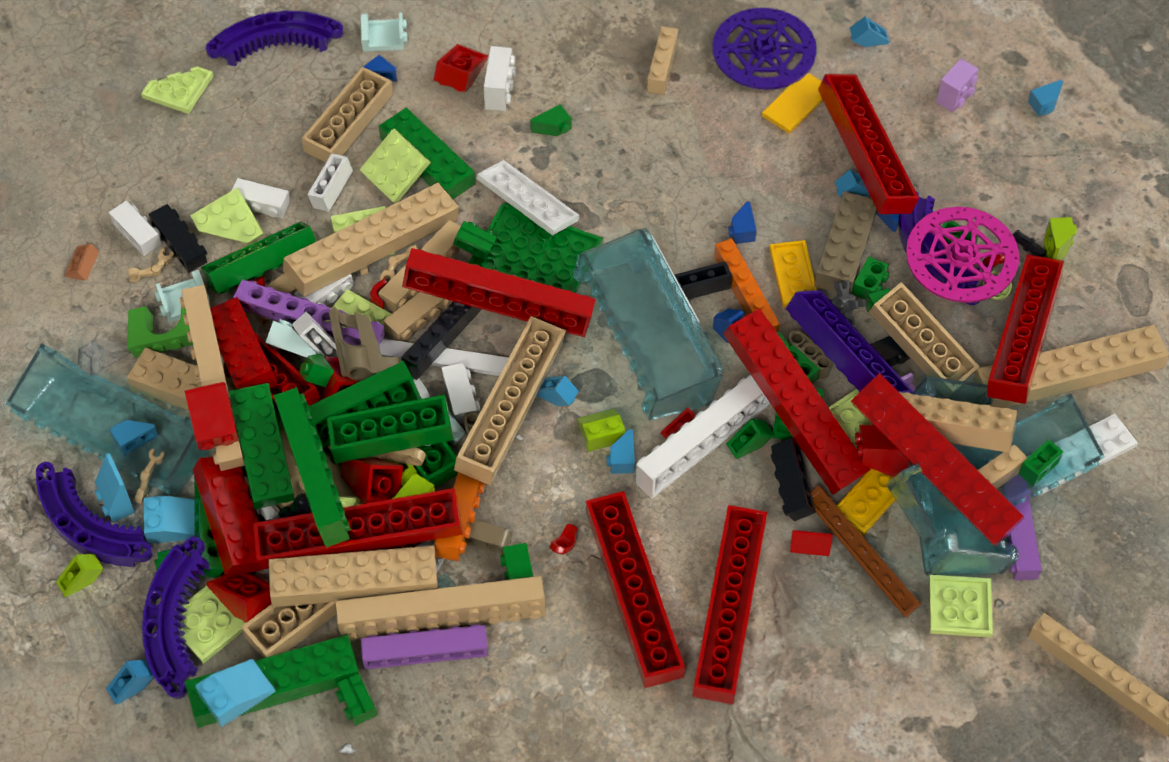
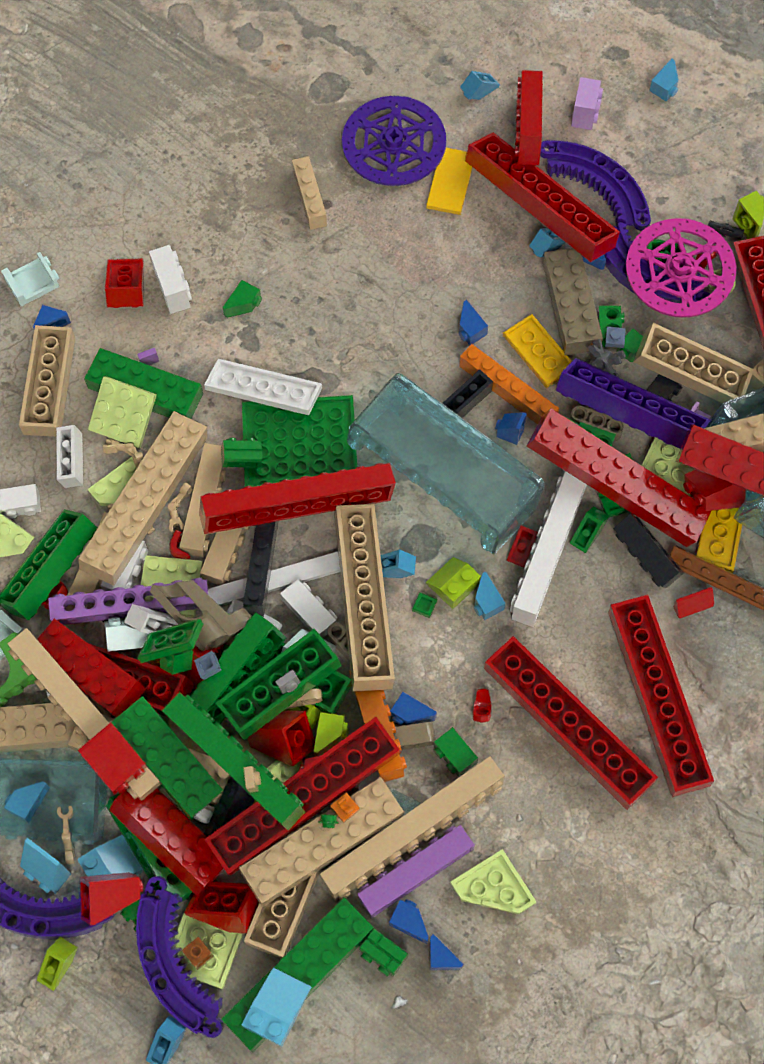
camera: 25 degrees left, 10 degrees up
(150, 531) = (107, 894): none -> red slope
(197, 619) = (197, 953): none -> dark orange brick
(312, 479) = (252, 779): none -> tan plate
(318, 351) = (170, 640): none -> green tile
(337, 384) = (207, 665): none -> sand blue plate
(365, 556) = (328, 820): none -> green plate
(372, 191) = (113, 447): none -> tan piece
(386, 553) = (344, 807): none -> orange tile
(394, 424) = (288, 682): none -> light grey plate
(394, 684) = (409, 921): none -> blue slope
(403, 728) = (441, 957): none -> blue slope
(445, 133) = (148, 357): none -> medium lavender tile
(486, 692) = (494, 885): none -> yellowish green plate
(497, 513) = (411, 711): none -> blue slope
(564, 436) = (424, 605): none -> green tile
(867, 287) = (615, 337): none -> sand blue plate
(893, 73) = (529, 117): none -> red brick
(937, 150) = (603, 173): none -> dark purple gear

